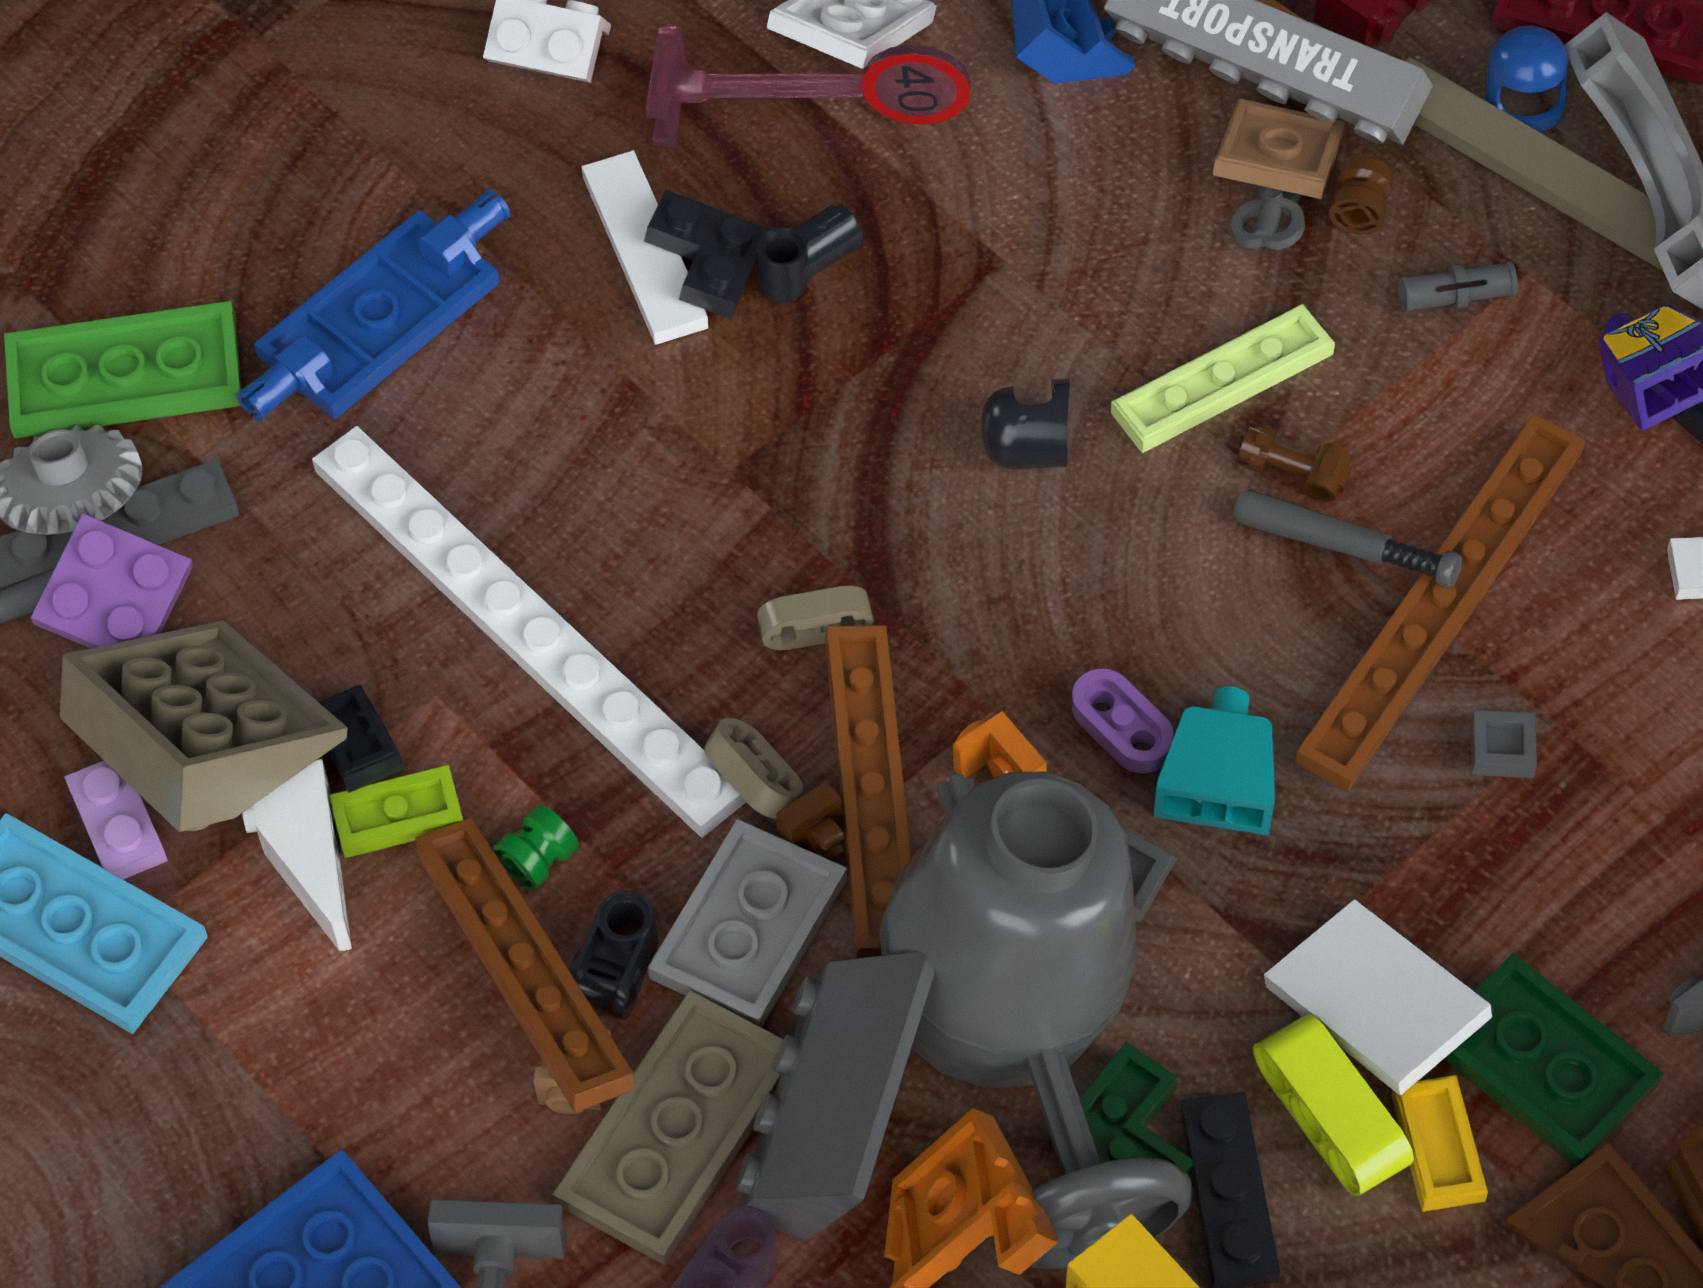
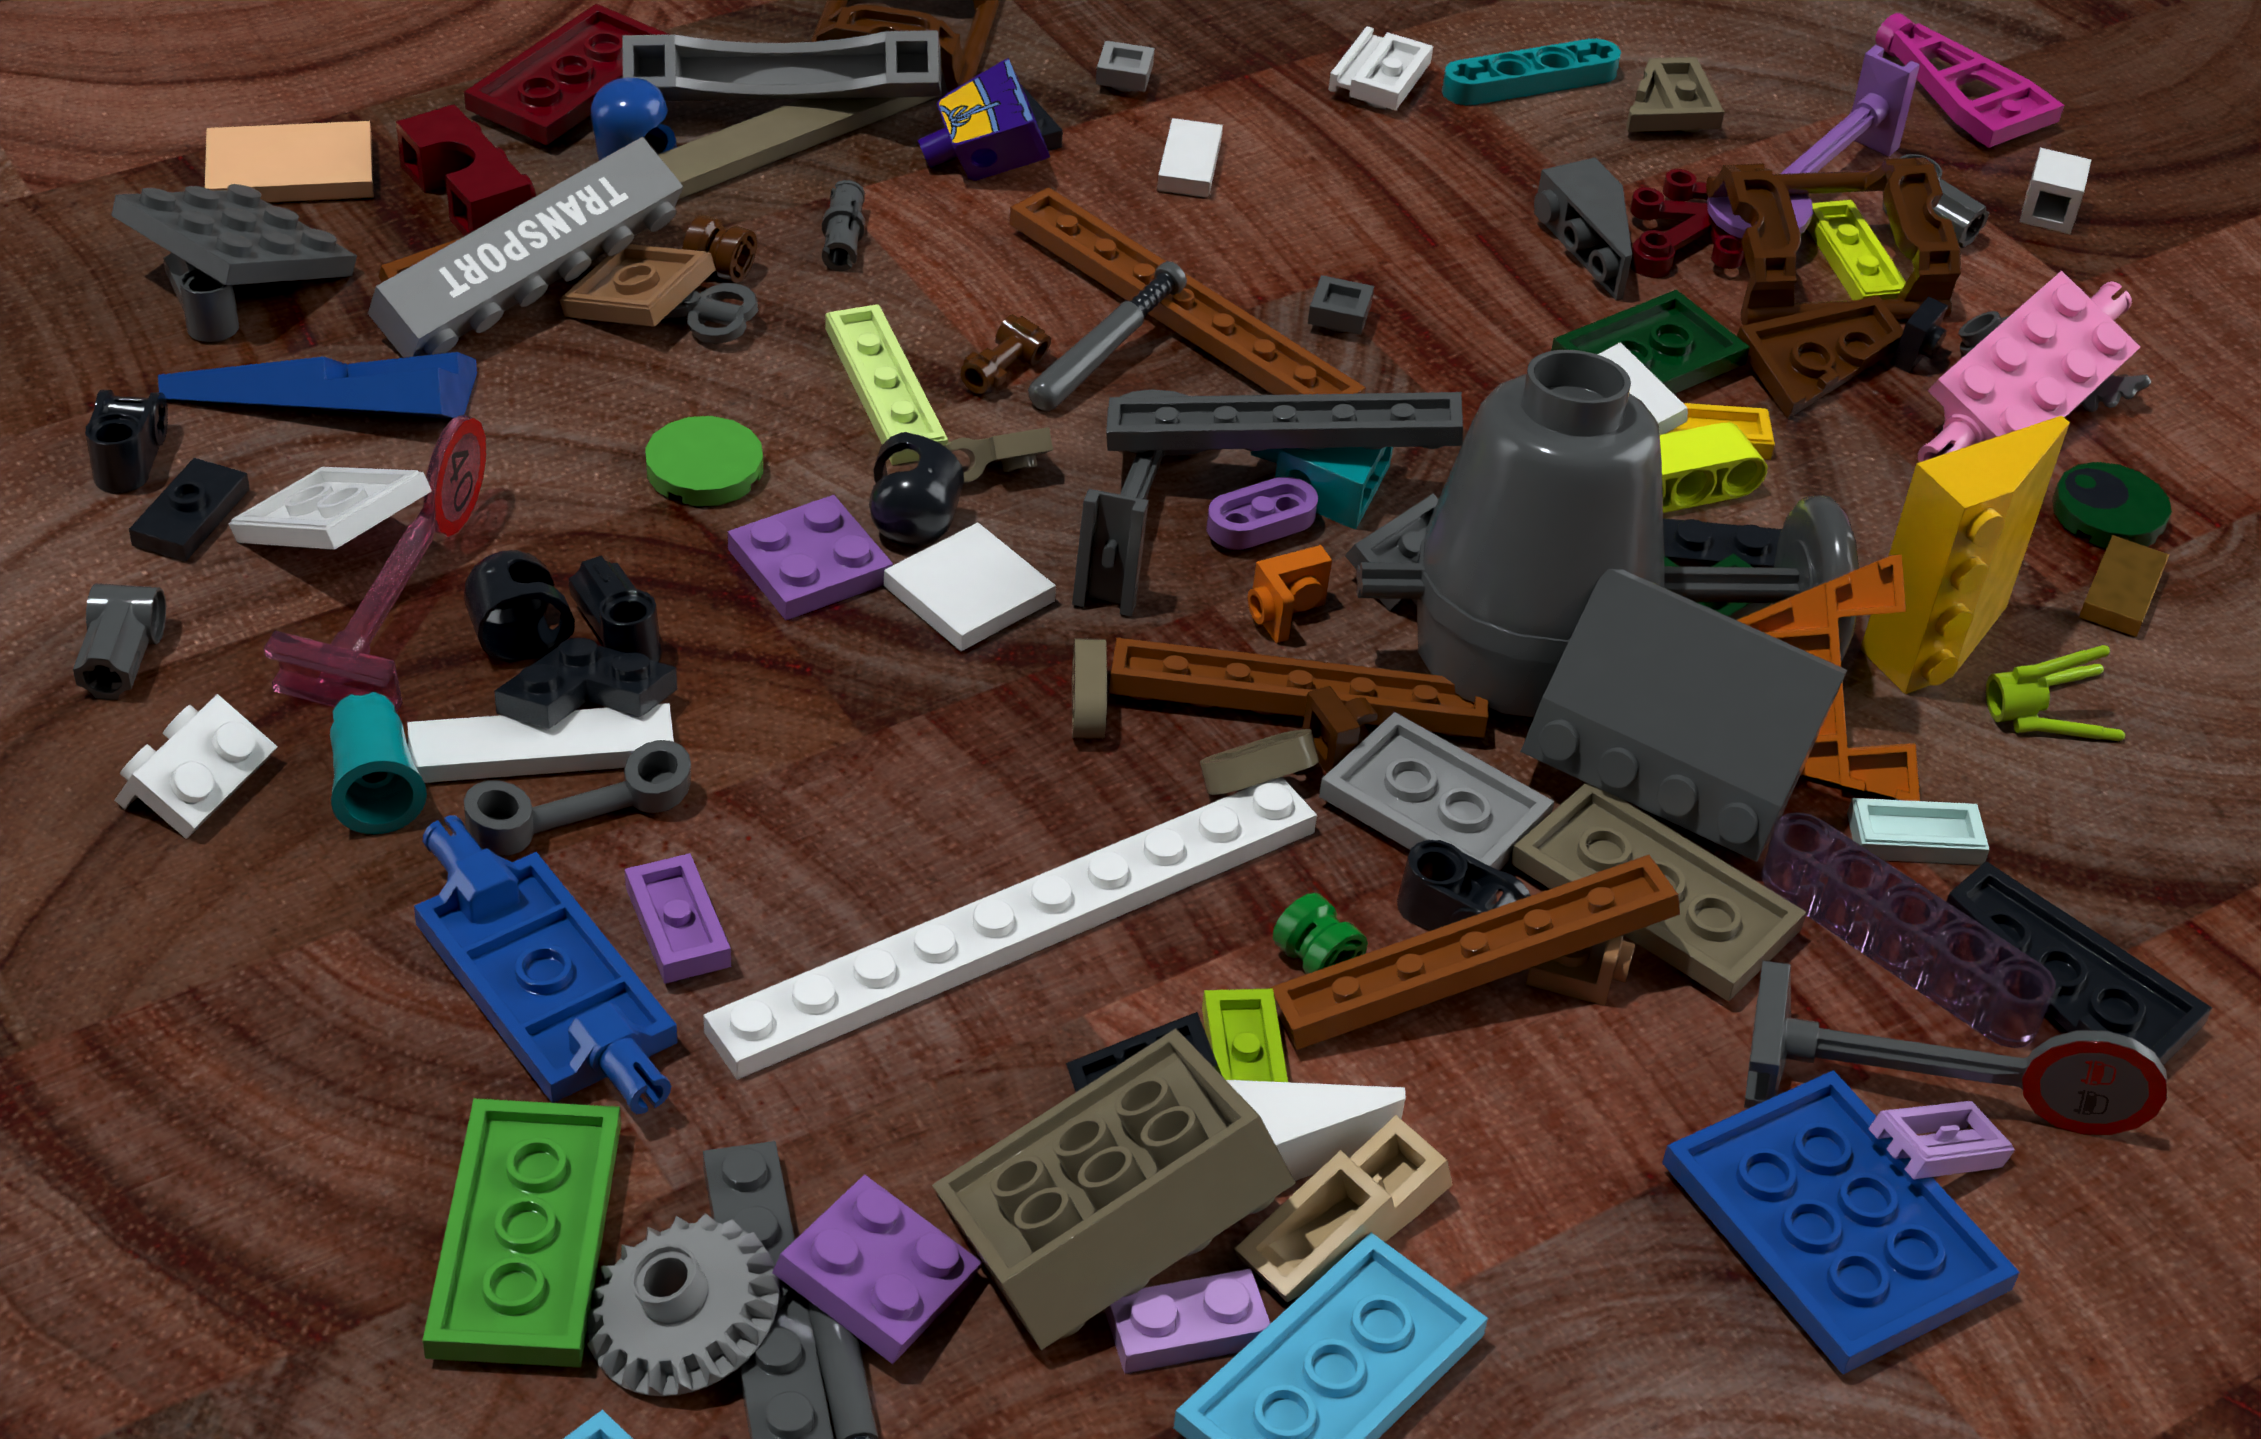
camera: 85 degrees left, 15 degrees down
(236, 911) = (1343, 1202): none -> tan slope
(457, 383) = (677, 918): none -> medium lavender plate
(538, 246) = (505, 821): none -> dark grey piece
(570, 137) = (374, 772): none -> teal plant
(783, 175) = (509, 605): none -> black helmet
(942, 375) = (809, 556): none -> medium lavender plate
(942, 504) = (969, 586): none -> white tile
(1050, 265) = (704, 460): none -> bright green tile
(1139, 490) = (1013, 450): none -> dark tan plate
(1205, 699) = (1285, 421): none -> dark grey plate
(1233, 612) = (1115, 531): none -> dark grey piece

